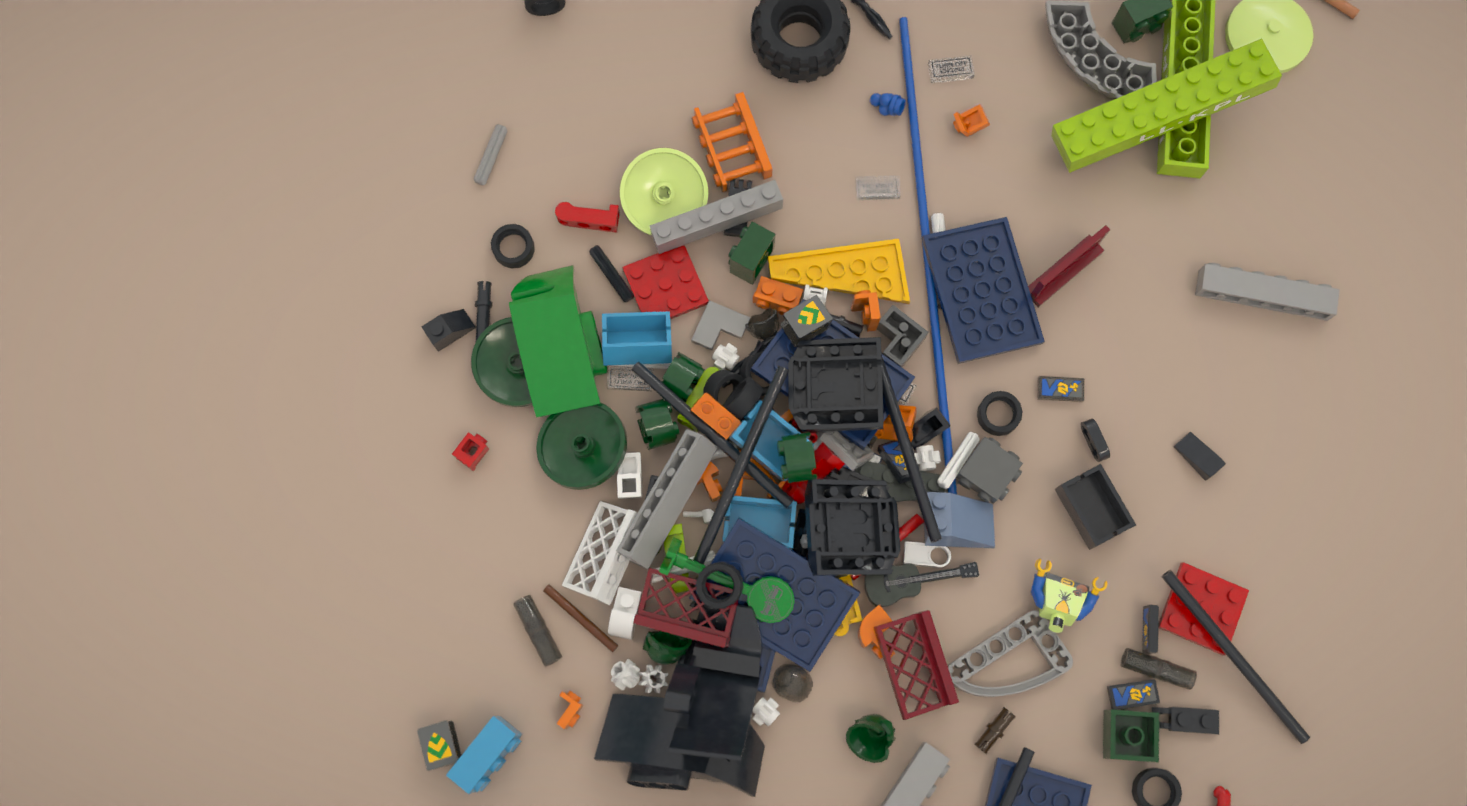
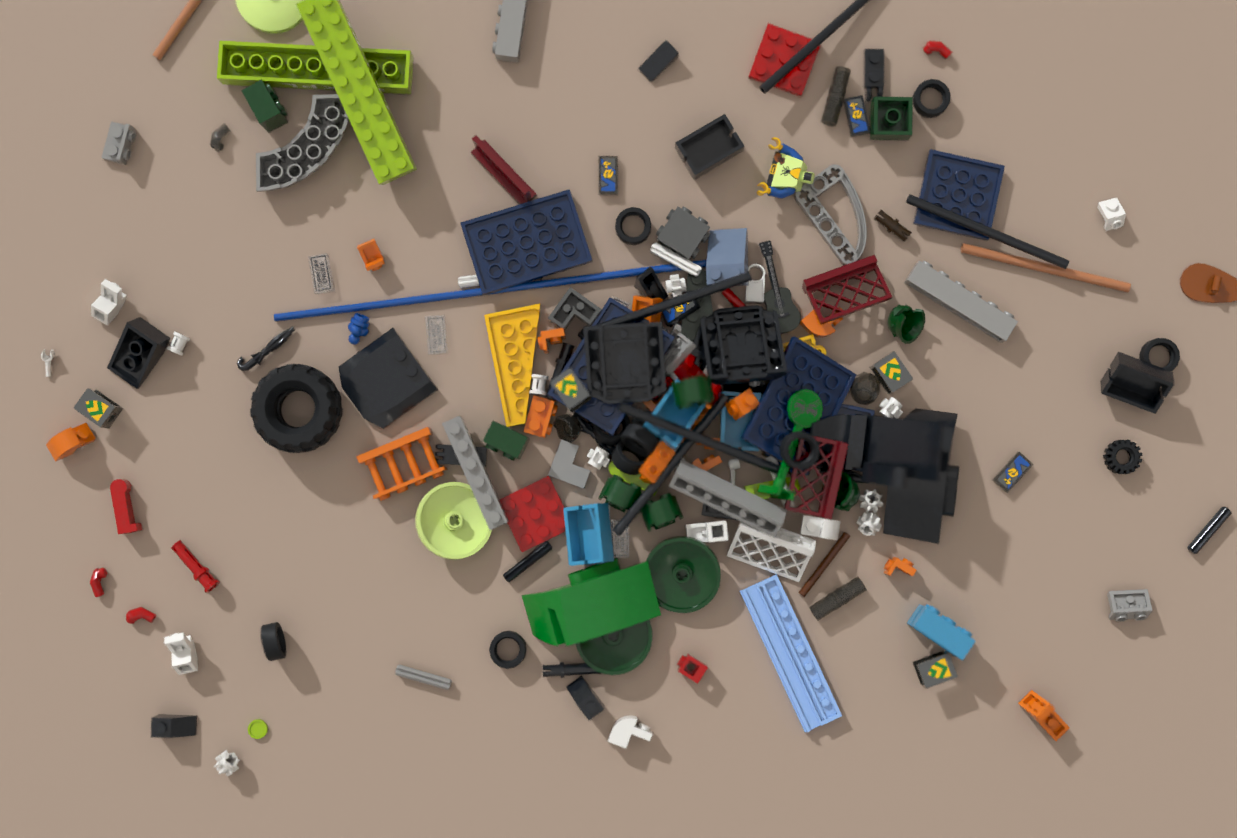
camera: 90 degrees left, 10 degrees up
(408, 370) = (625, 727): none -> white brick
(476, 570) = (790, 653): none -> light blue plate
(588, 218) = (479, 585): red leg -> none
(779, 522) = (742, 404): none -> orange bracket
(810, 714) = (891, 372): none -> piece
(827, 130) = (385, 380): none -> black wedge
(1095, 440) = (651, 146): black beam -> none
(1150, 629) = (805, 102): black tile -> none

